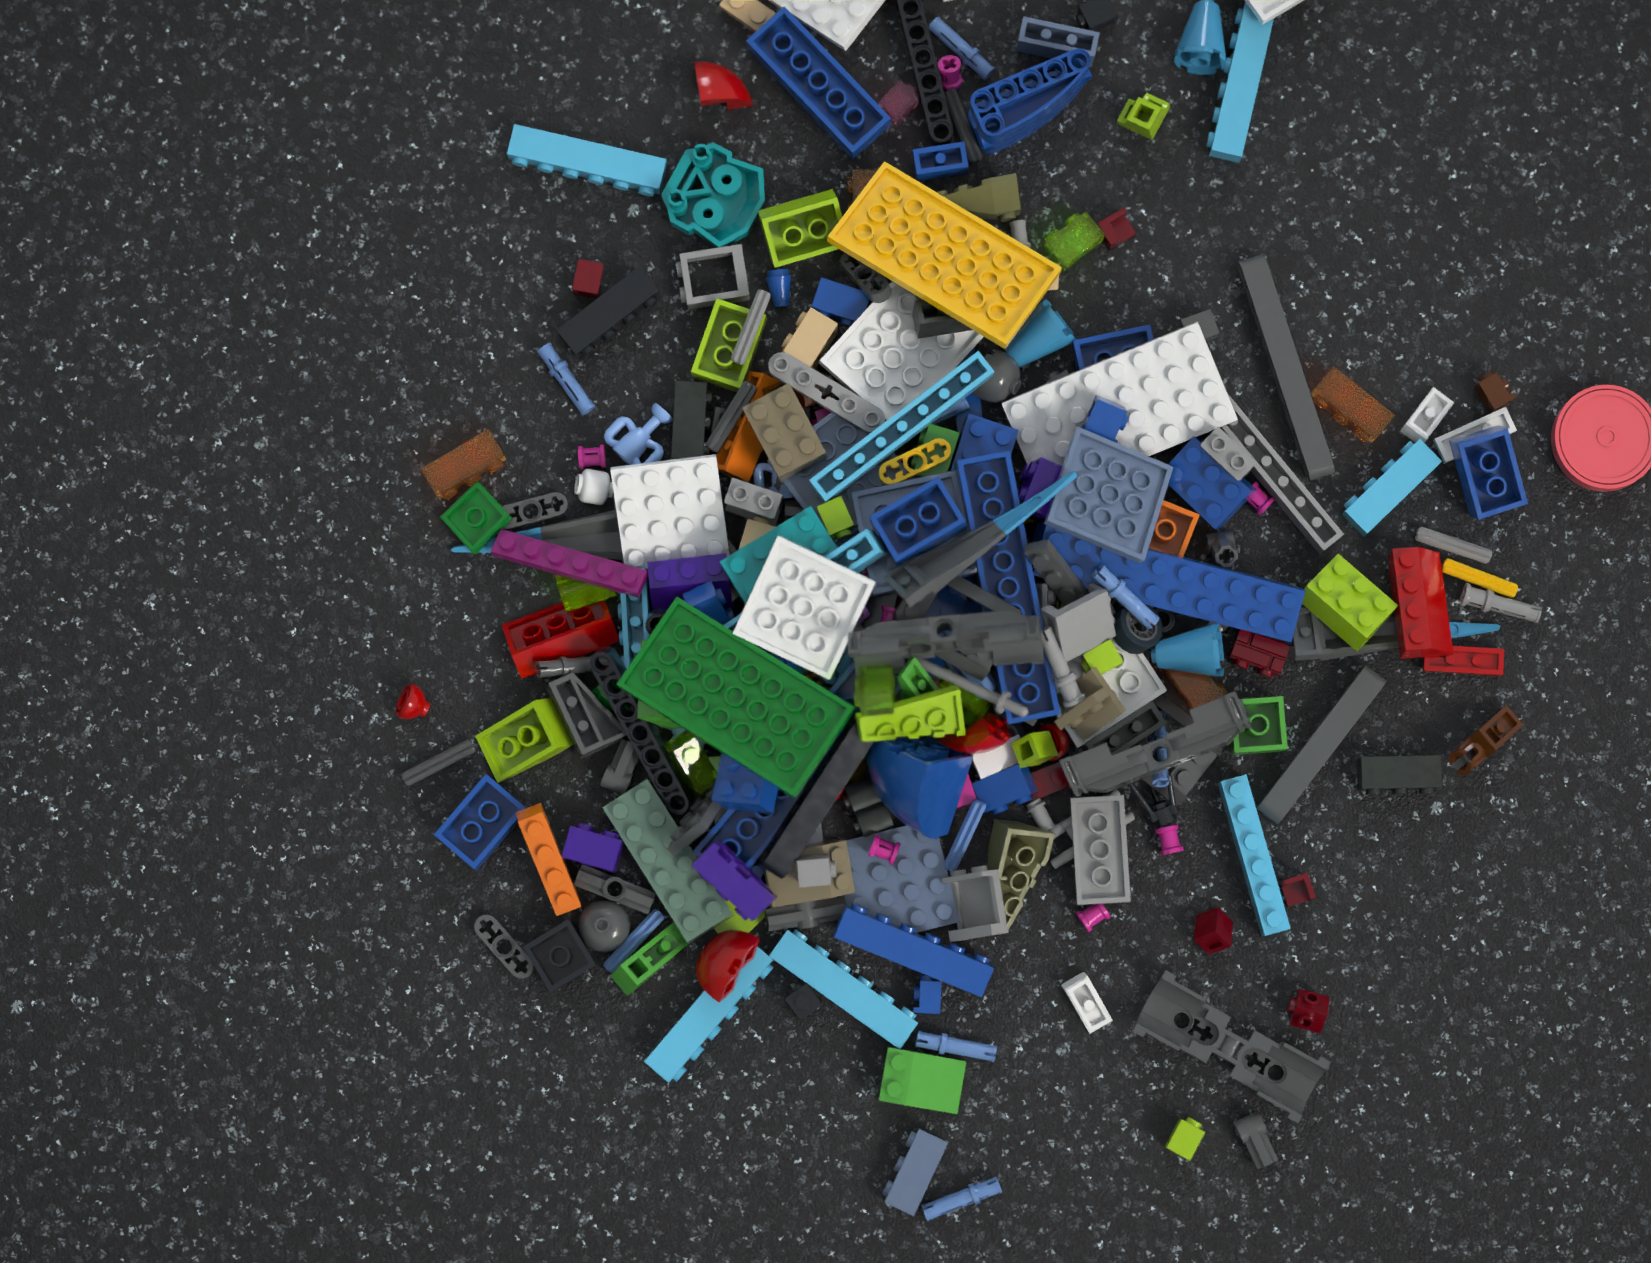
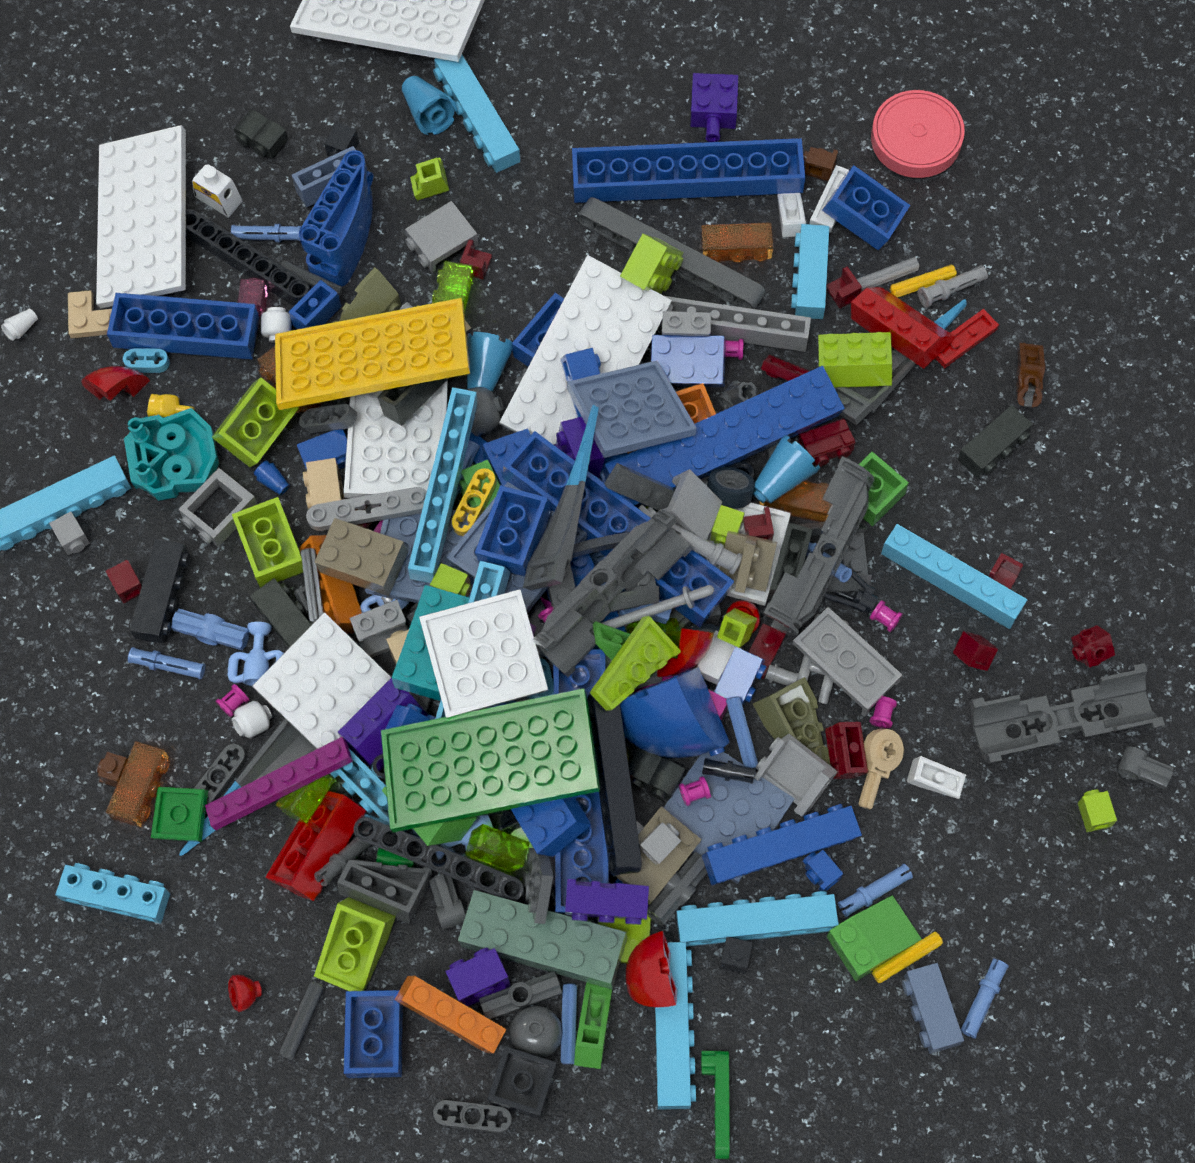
camera: 40 degrees left, 15 degrees down
(376, 539) = (113, 893): none -> medium azure brick
(453, 435) = (111, 769): none -> reddish brown brick
(577, 197) = (69, 533): none -> light grey brick
(623, 380) = (210, 629): none -> medium blue piece
(716, 1068) = (717, 1064): none -> green beam
(745, 146) = (165, 405): none -> yellow piece
(750, 327) = (273, 512): light grey axle -> none
(768, 81) = (146, 360): none -> medium azure beam
(875, 690) = (589, 665): clear neon green brick -> none
(897, 146) = (275, 321): none -> white head
(925, 856) = (728, 770): none -> black pin
(933, 1117) = (907, 957): none -> yellow axle
(949, 68) = (272, 250): dark pink bush -> none
(1033, 920) = (846, 750): none -> dark red brick
(1059, 947) = (883, 754): none -> tan piece
(1104, 180) = (439, 235): none -> light grey panel
(1117, 589) = (704, 466): medium blue pin -> none
(1127, 681) = (759, 525): none -> dark red panel
(1251, 373) = (652, 264): none -> lime brick
(1285, 559) = (779, 368): none -> dark red plate
(1321, 744) = (926, 467): dark grey beam -> none
(1370, 302) = (688, 170): none -> blue brick
(1404, 527) = (844, 289): none -> dark red panel
(1454, 255) = (714, 103): none -> dark purple brick

